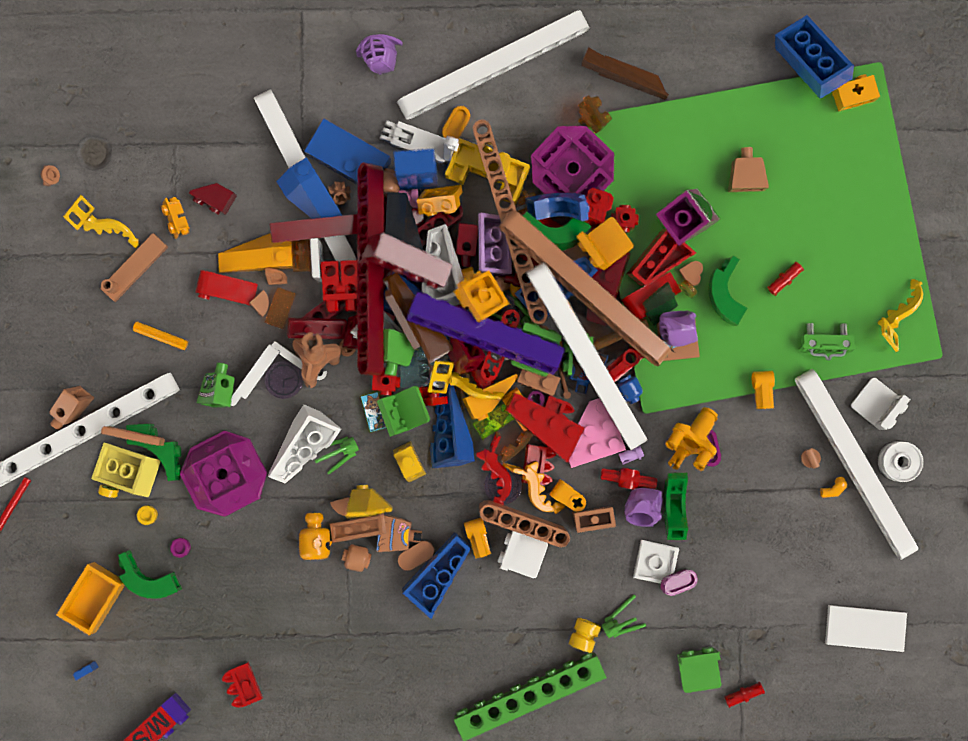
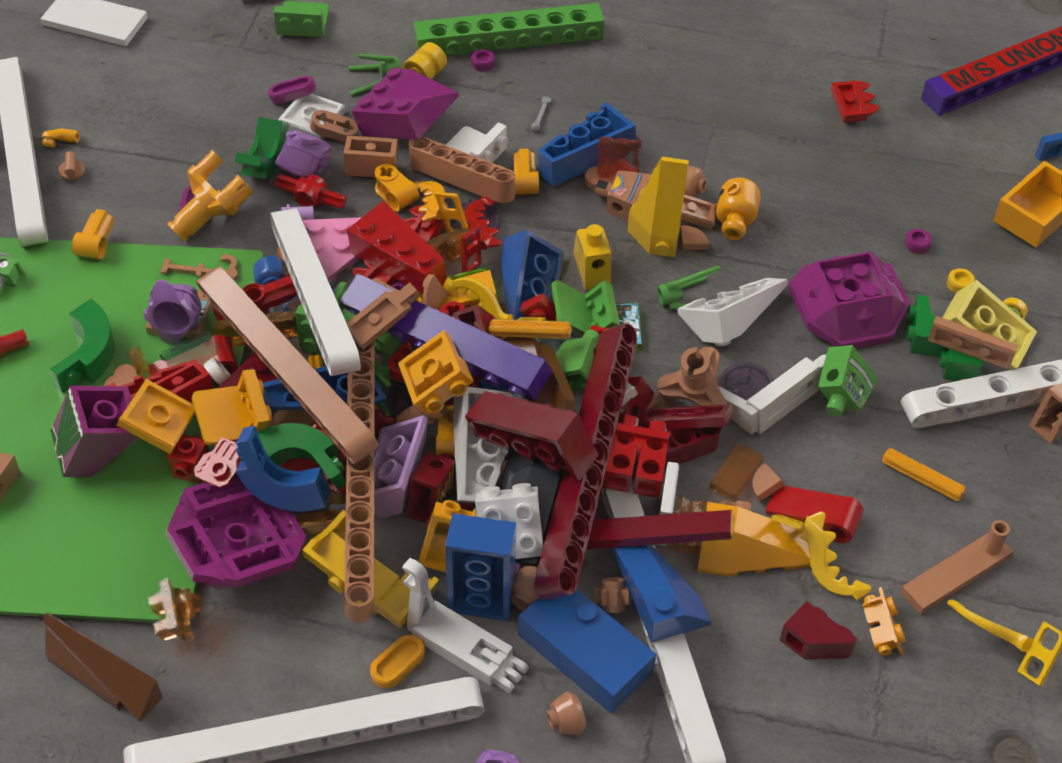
camera: 165 degrees left, 35 degrees down
(143, 585) = (966, 207): green arch -> none
(219, 255) = (821, 556): none -> yellow piece
(350, 109) = (566, 715): none -> nougat cone
(409, 209) = (517, 506): none -> white bracket
(410, 560) = (613, 155): none -> clear red piece
(429, 353) = (530, 329): none -> light orange axle
(483, 594) = (545, 101): none -> light grey hinge
(507, 384) = (433, 292): none -> nougat tile
(529, 330) = (381, 315): none -> nougat hinge
(542, 660) = (483, 60): none -> magenta tile
(584, 577) = (402, 105): none -> magenta slope
(629, 283) = (217, 370): none -> white tile
(633, 544) = (333, 125): none -> nougat beam
(650, 228) = (157, 416): none -> light orange plate
(657, 384) = (200, 270): none -> nougat piece

